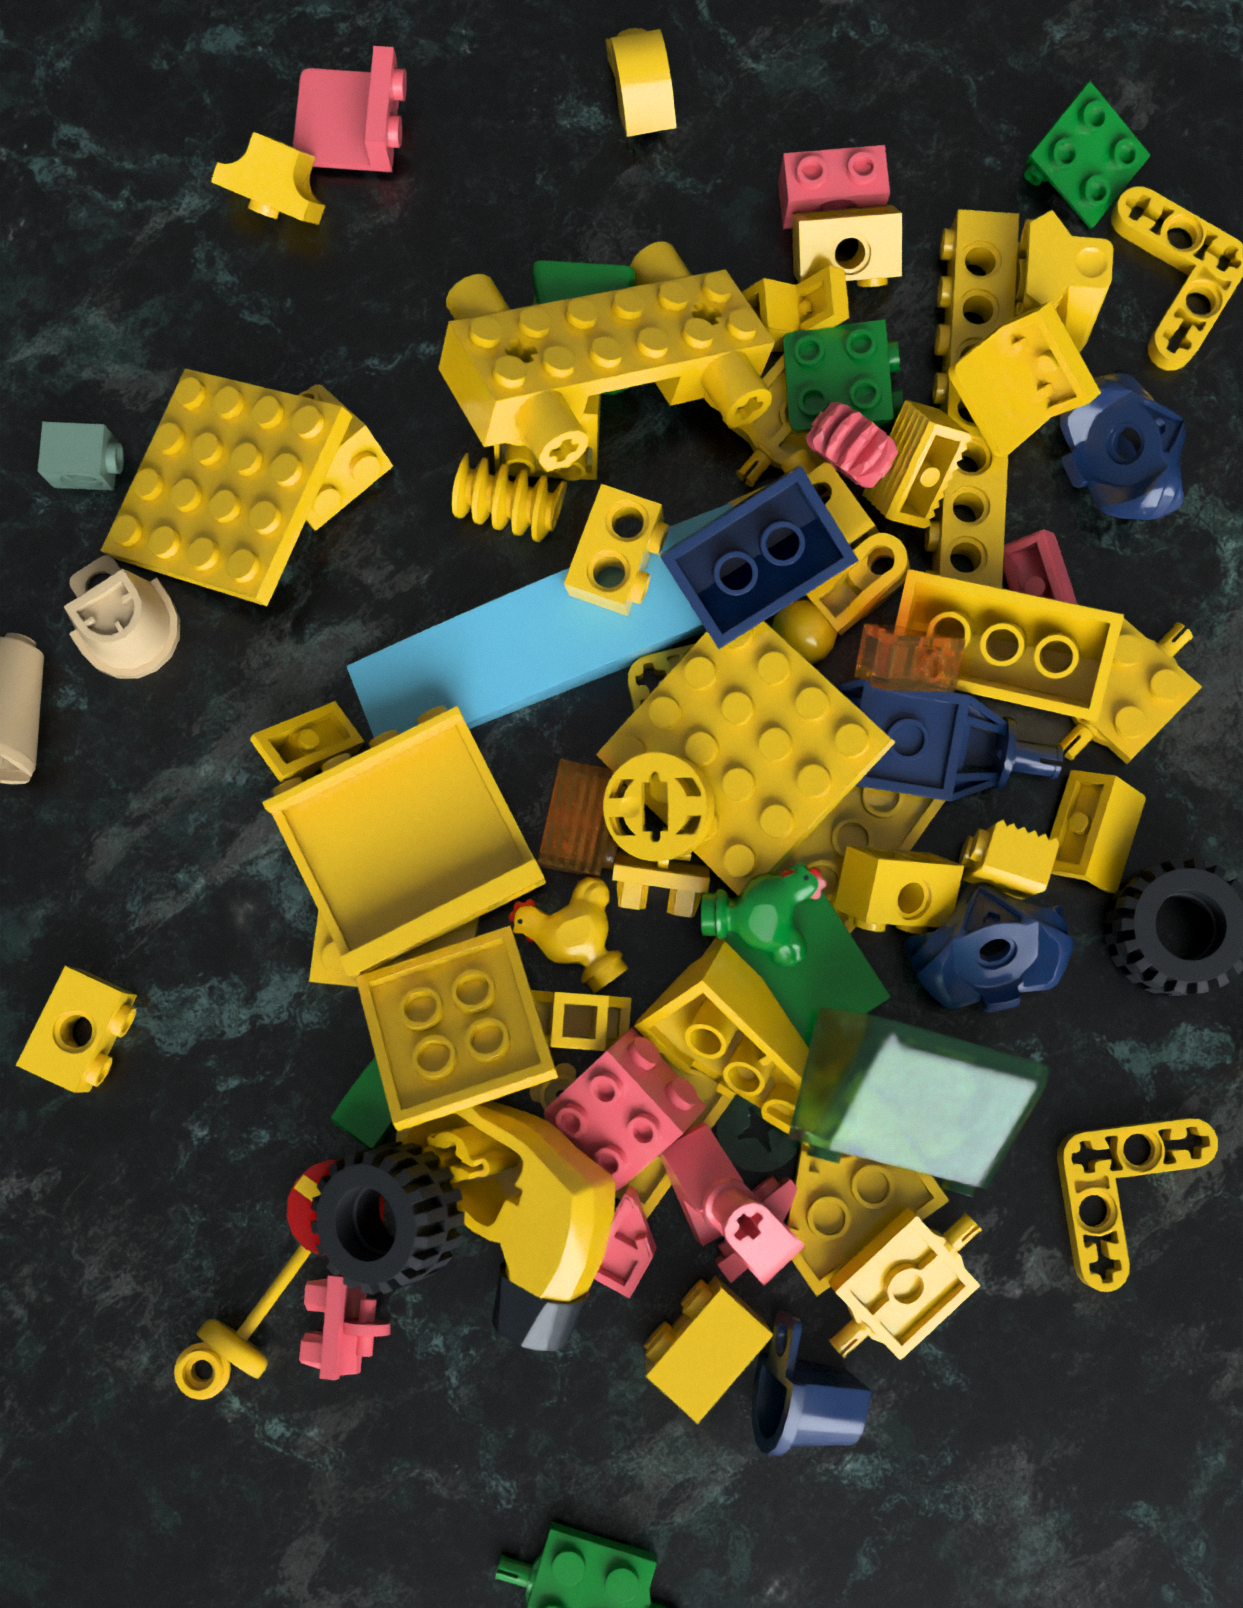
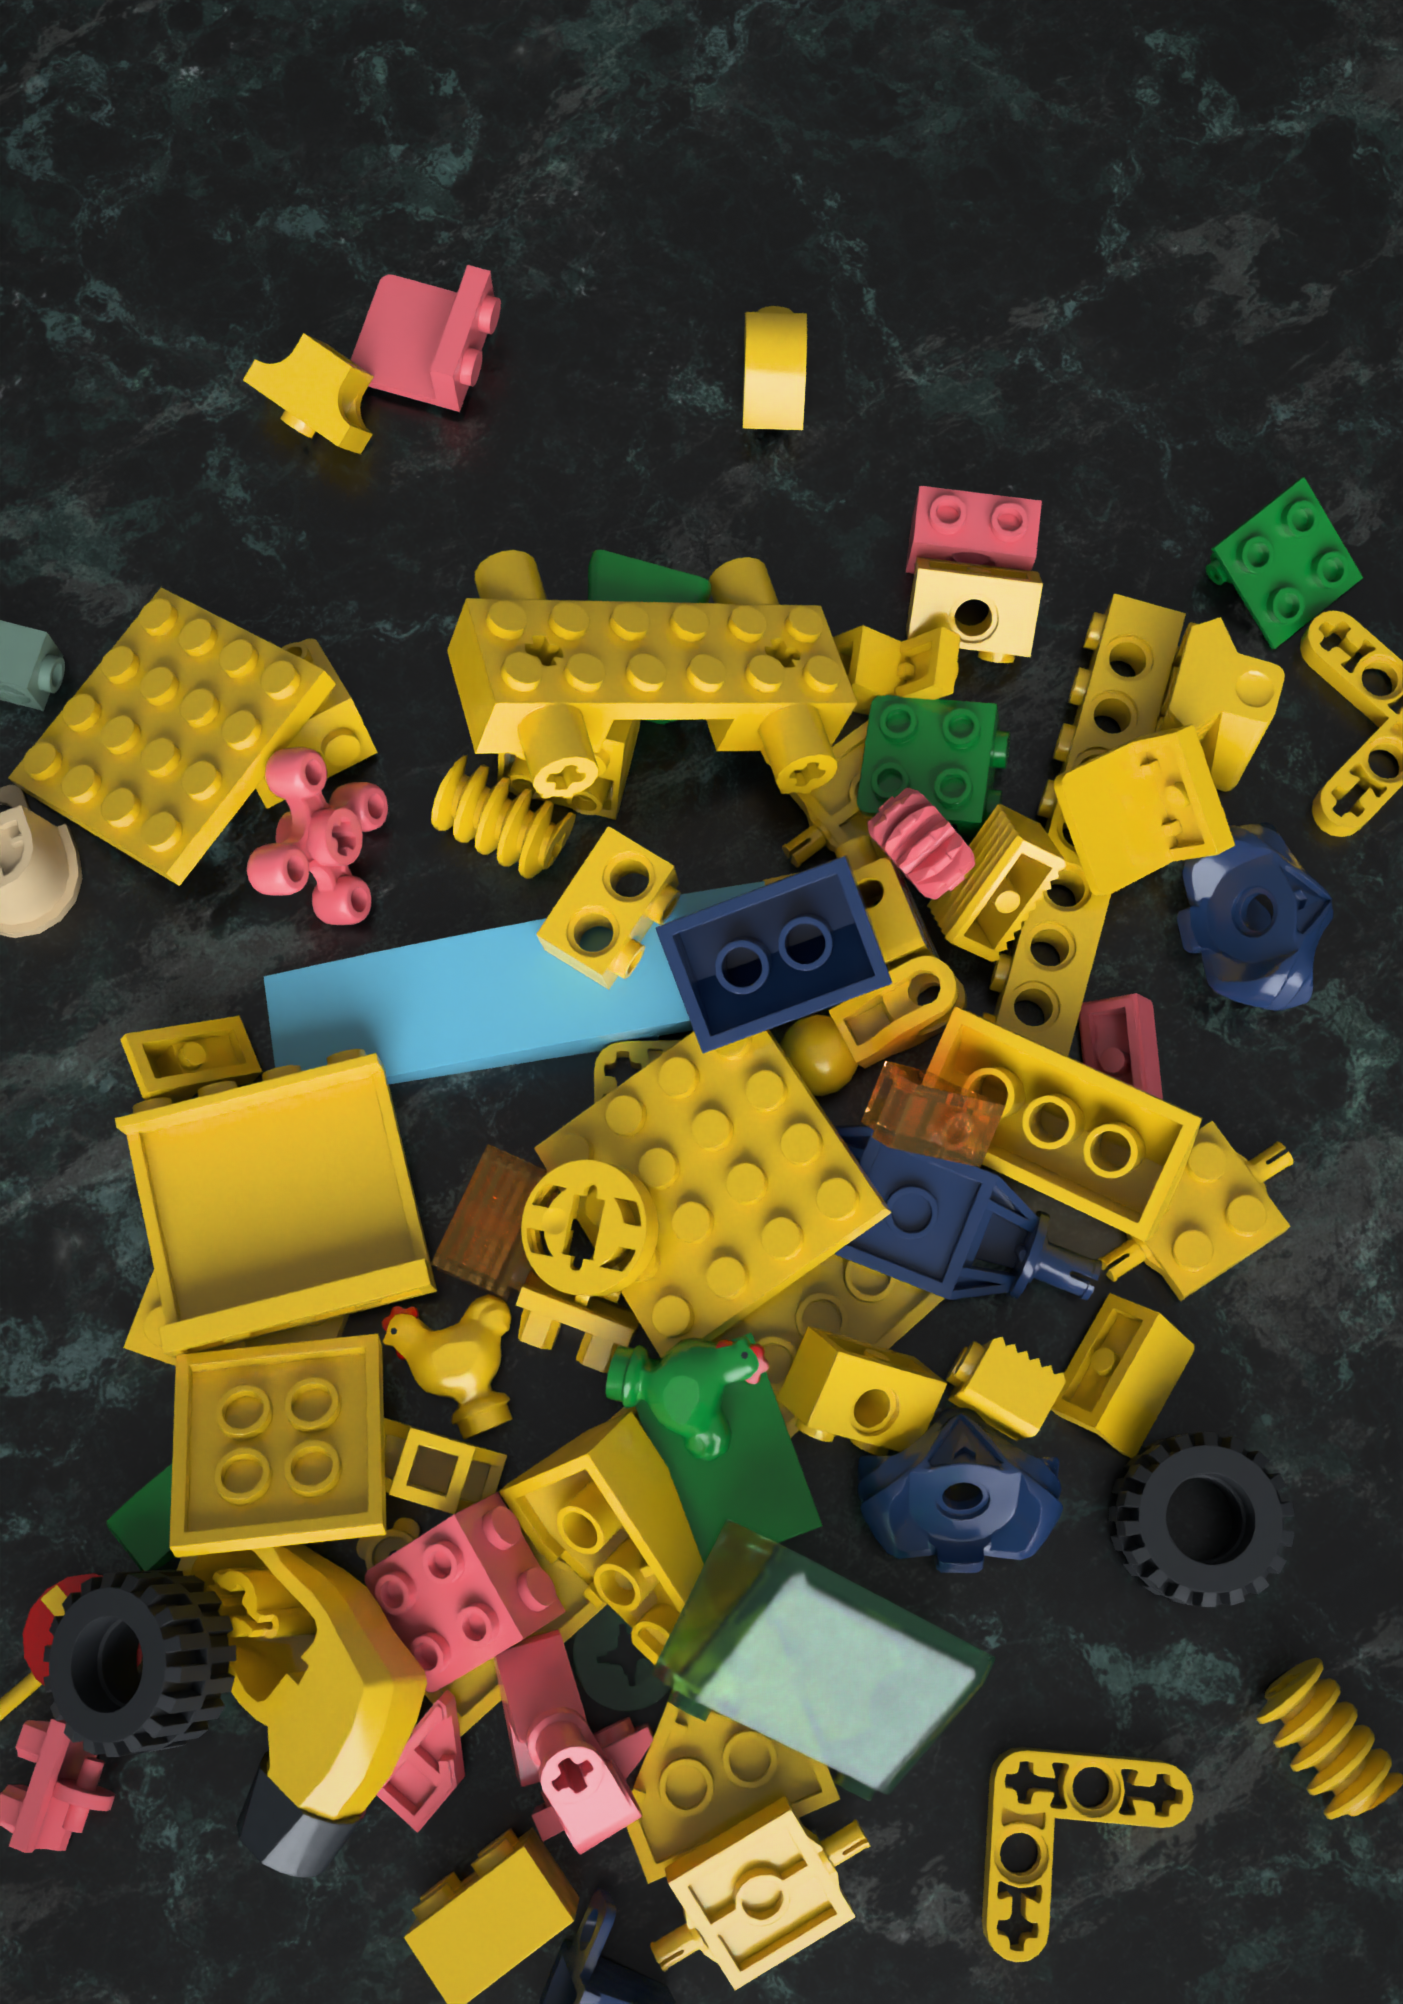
camera: 10 degrees right, 5 degrees down
(366, 543) = (317, 837): none -> coral gear

